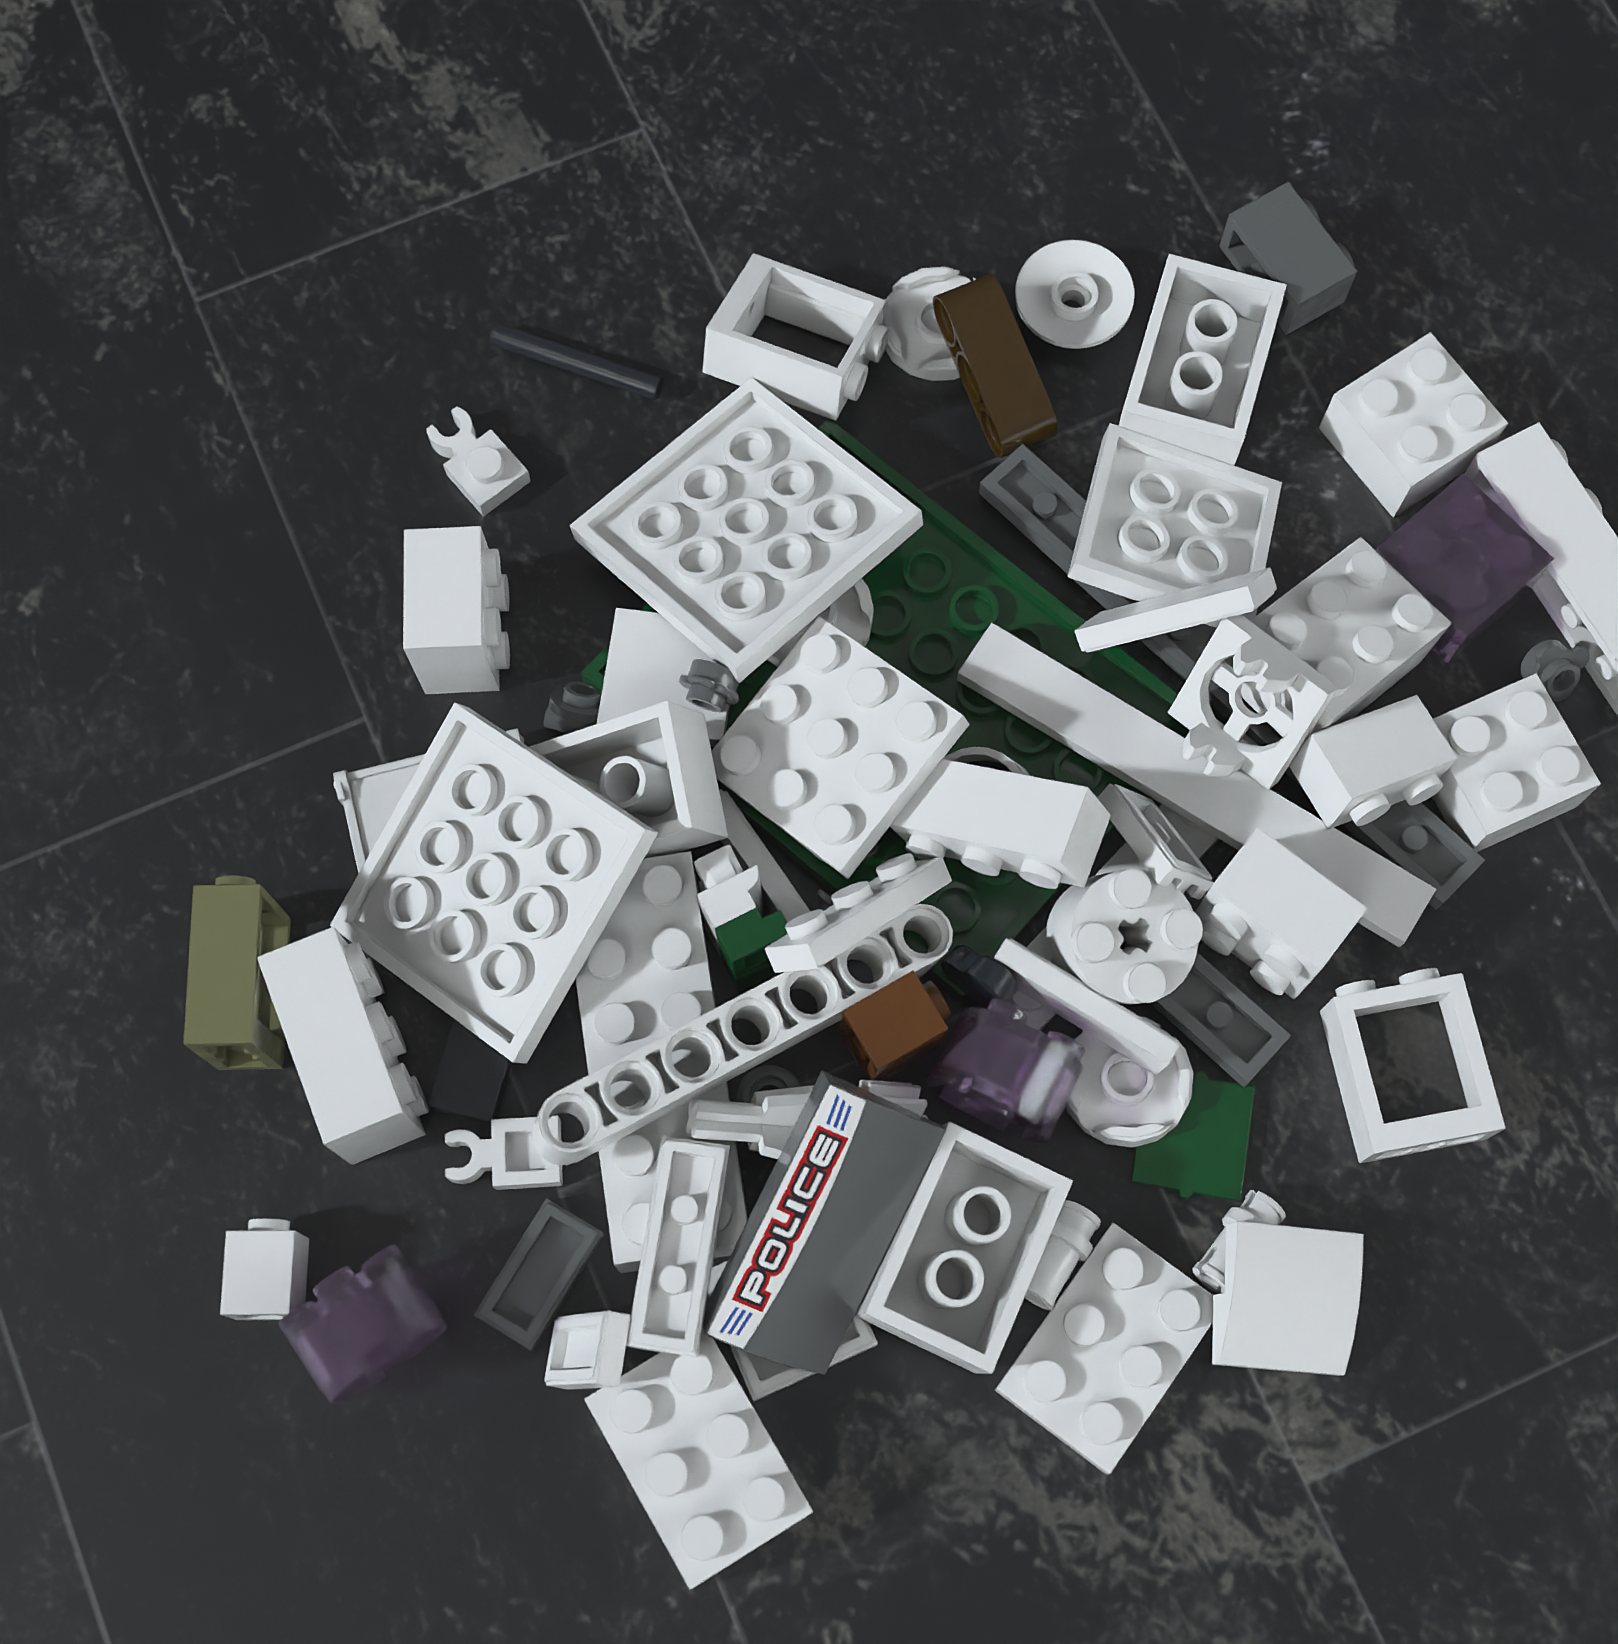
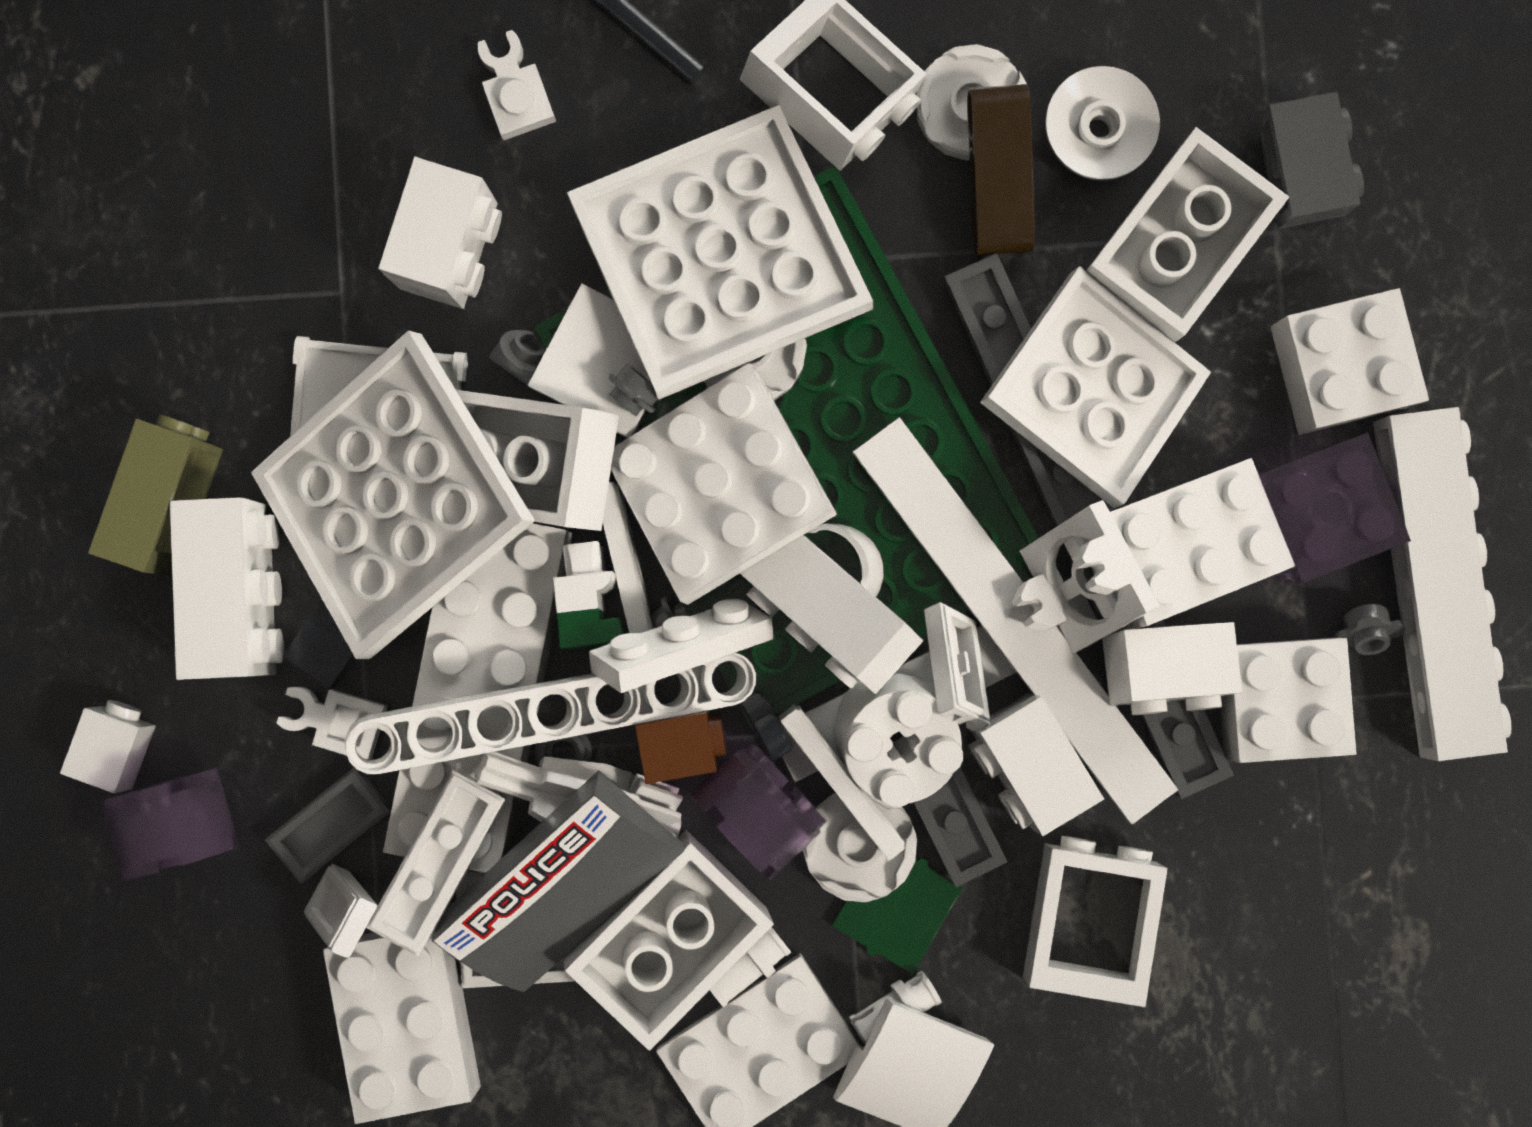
camera: 20 degrees right, 15 degrees up
(1177, 610) = (1056, 476): white tile -> none

